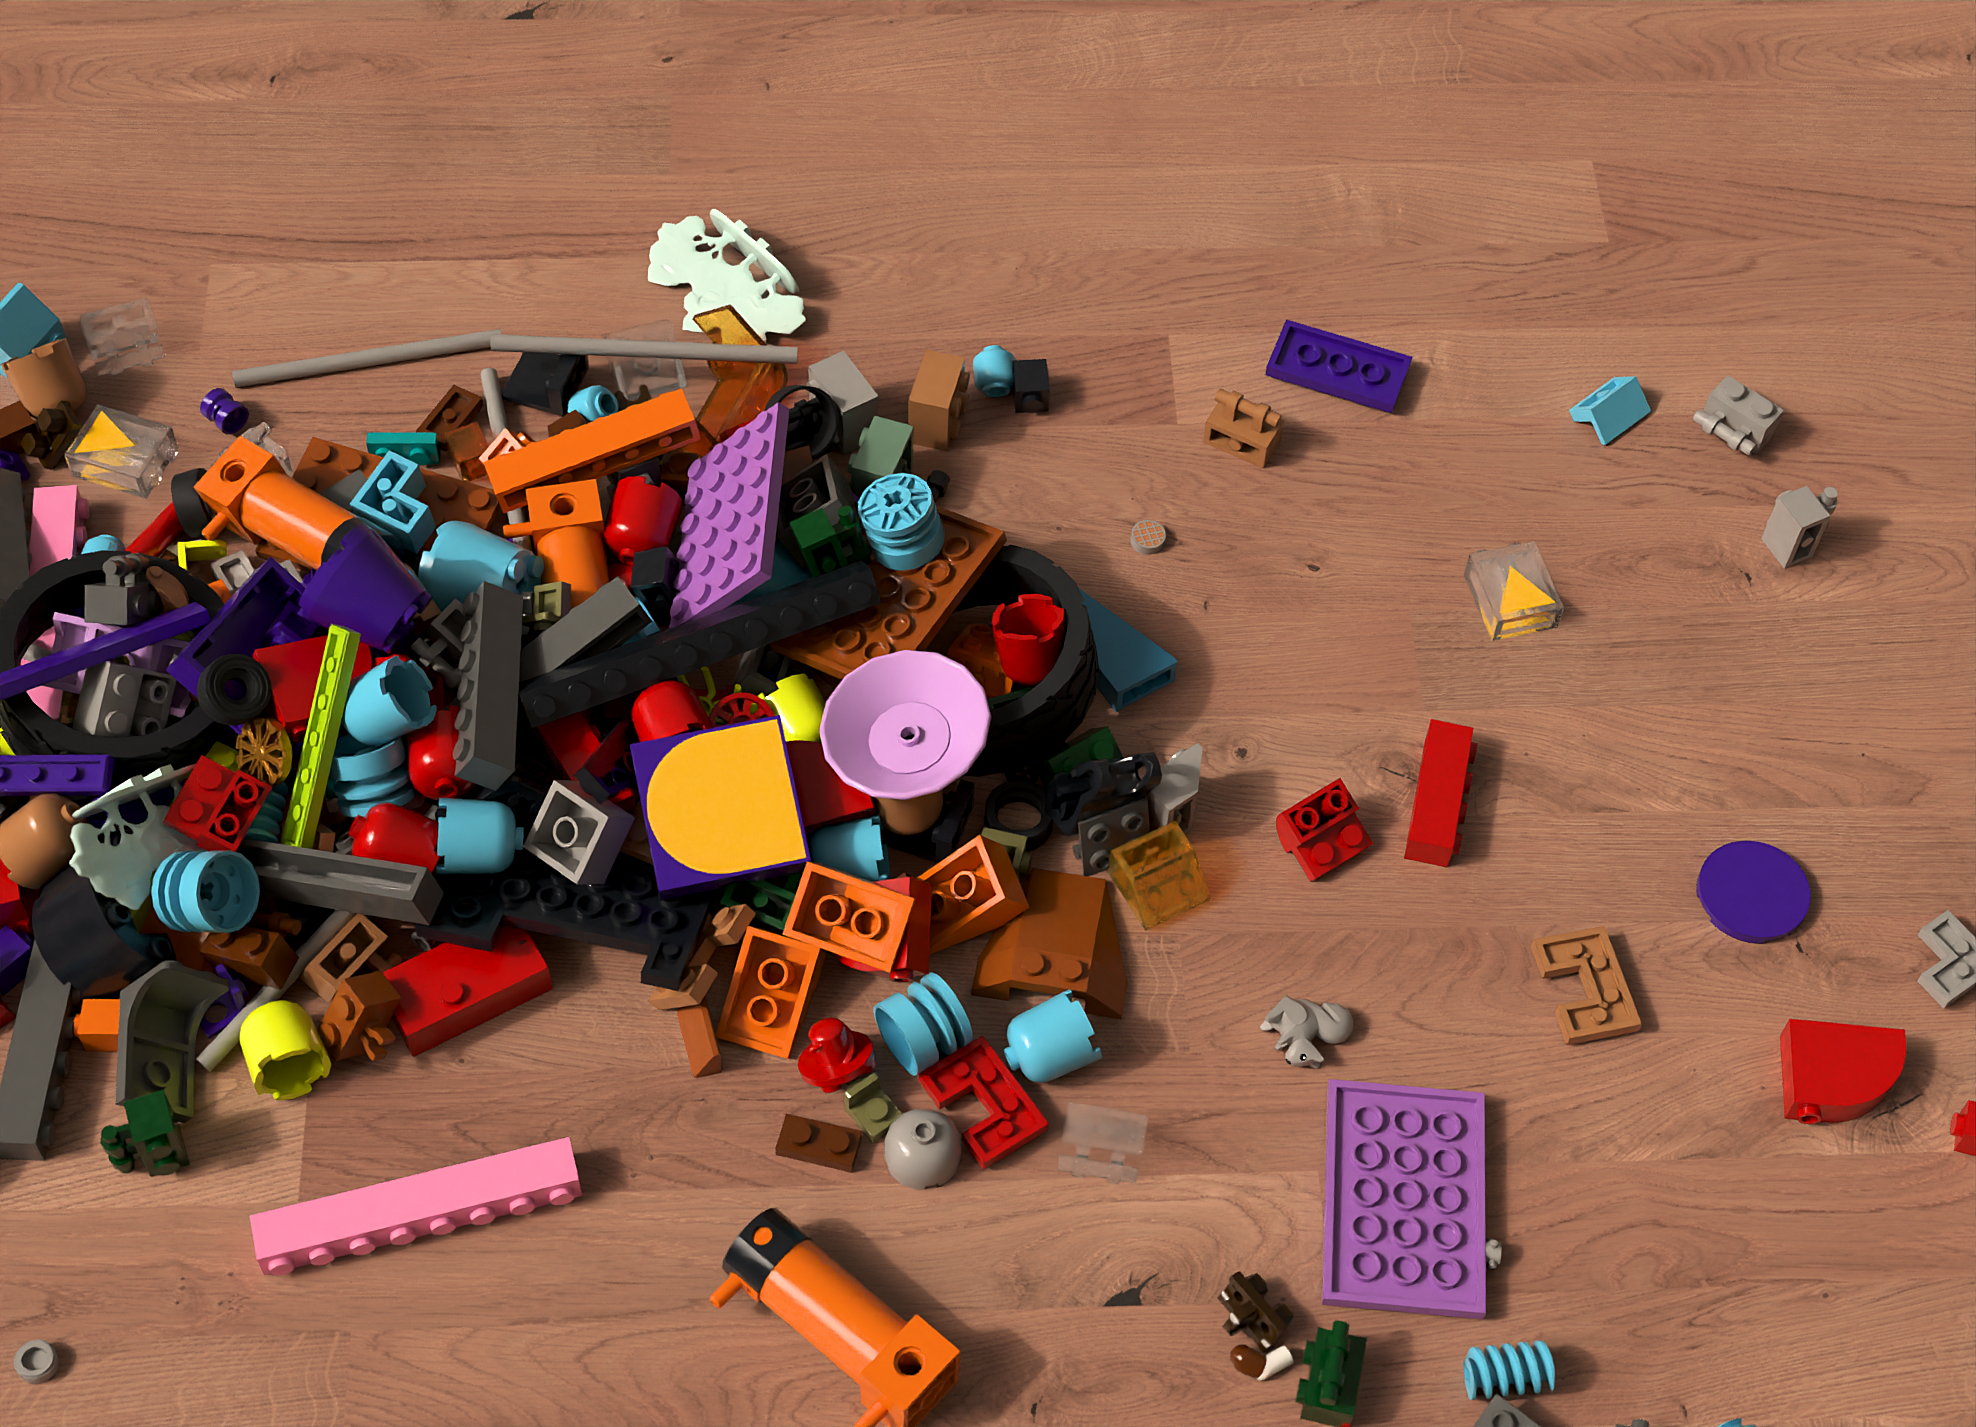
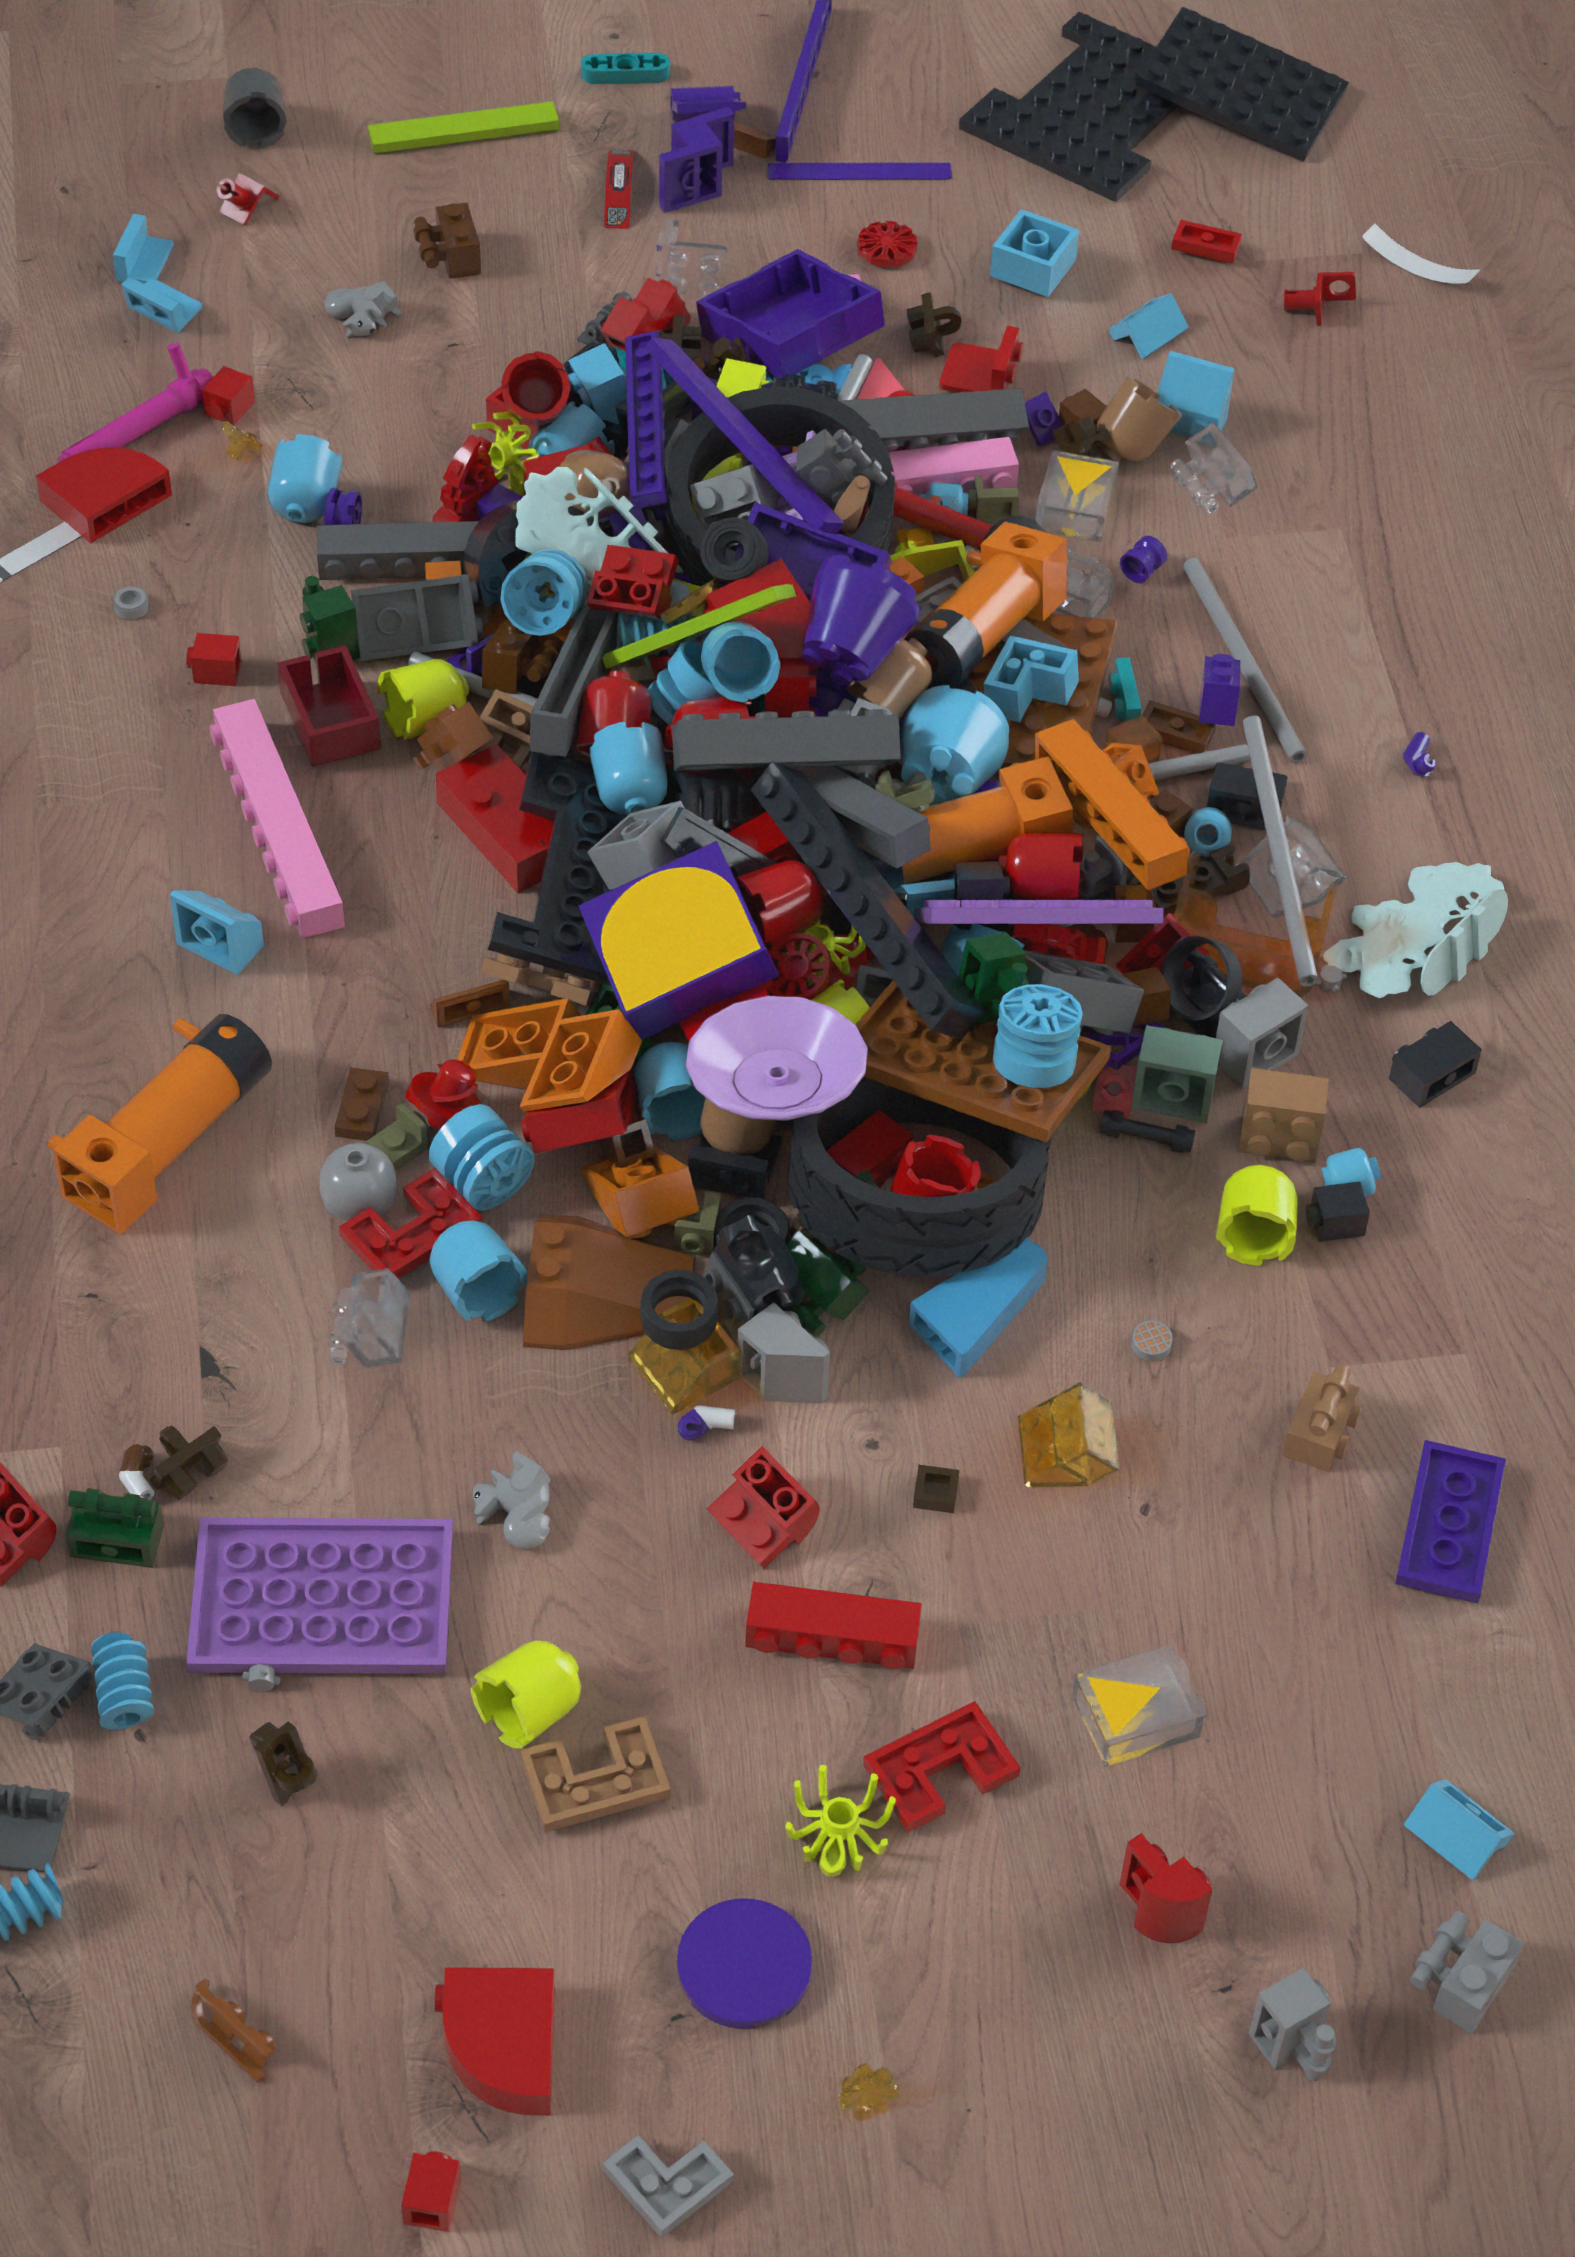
camera: 85 degrees right, 5 degrees down
(114, 518) = (992, 504): none -> olive bracket
(161, 1264) = (215, 659): none -> red brick
(271, 1142) = (331, 716): none -> dark red piece
(425, 371) = (1219, 690): none -> dark purple brick
(518, 256) = (1415, 756): none -> dark purple arm
(577, 1266) = (215, 929): none -> medium azure slope
(879, 297) = (1434, 1063): none -> black brick
(1036, 434) = (1258, 1215): none -> neon yellow cylinder
(1146, 833) = (683, 1284): none -> black tyre
(1216, 876) = (704, 1418): none -> arm
(1256, 605) = (1068, 1439): none -> clear yellow slope
(1294, 708) = (936, 1488): none -> dark brown tile
(1519, 1022) = (527, 1691): none -> neon yellow cylinder
(1545, 719) = (910, 1760): none -> red plate
(1591, 1231) = (283, 1760): none -> dark brown hips
(1630, 807) = (839, 1822): none -> neon yellow animal
(1693, 590) = (1168, 1897): none -> red brick
(1836, 1287) = (227, 2022): none -> dark orange piece
(1860, 814) = (868, 2090): none -> clear yellow plant

